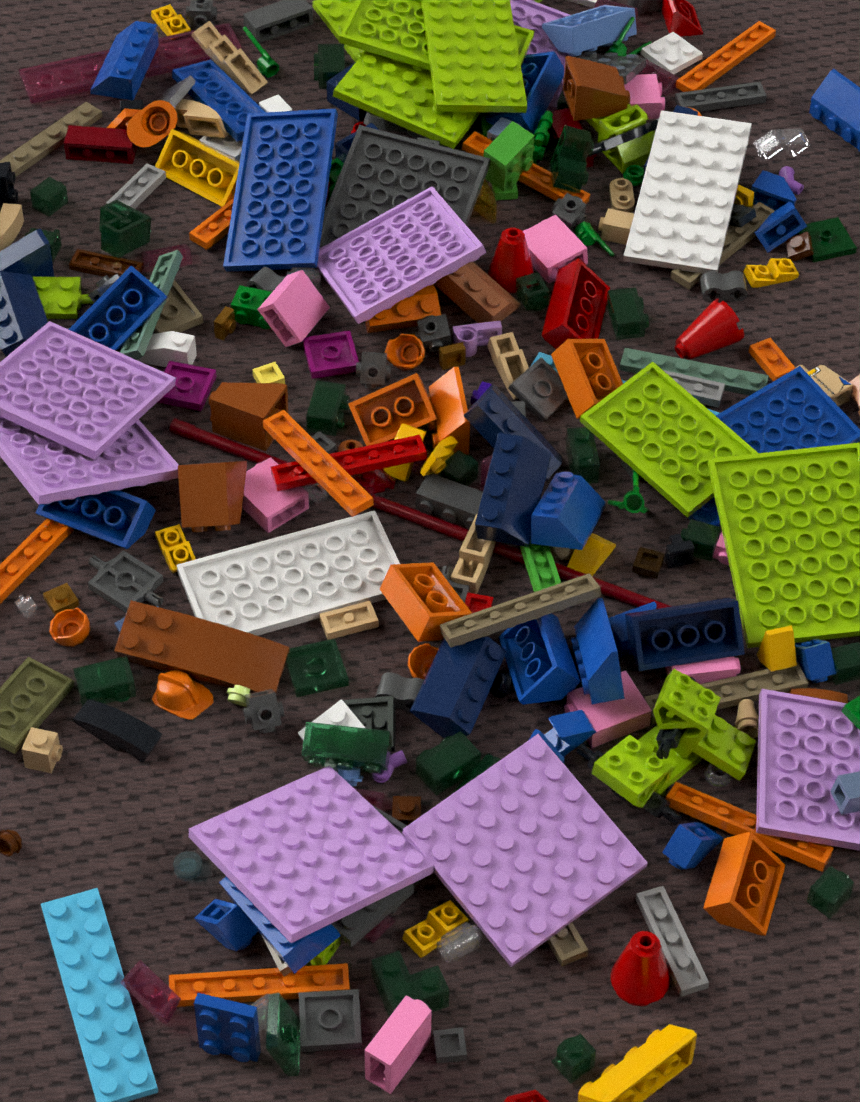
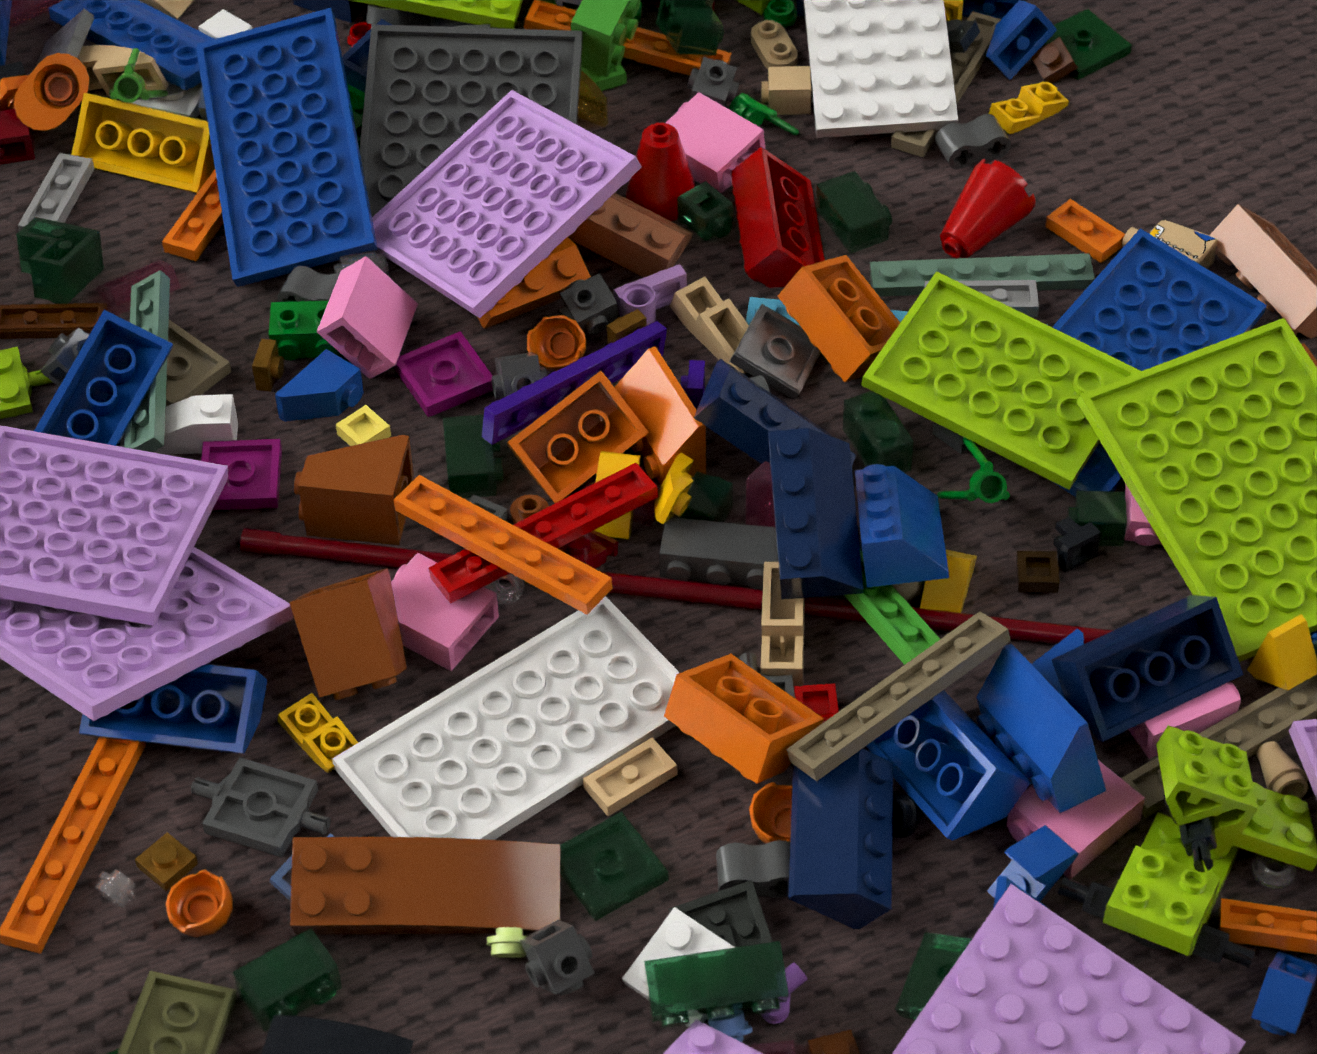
camera: 15 degrees left, 0 degrees up
(181, 695) = (414, 967): orange piece -> none
(200, 130) = (132, 85): none -> bright green plant
(251, 346) = (320, 389): none -> blue slope
(358, 386) = (530, 402): none -> dark purple plate
(447, 762) = (870, 963): clear green brick -> none

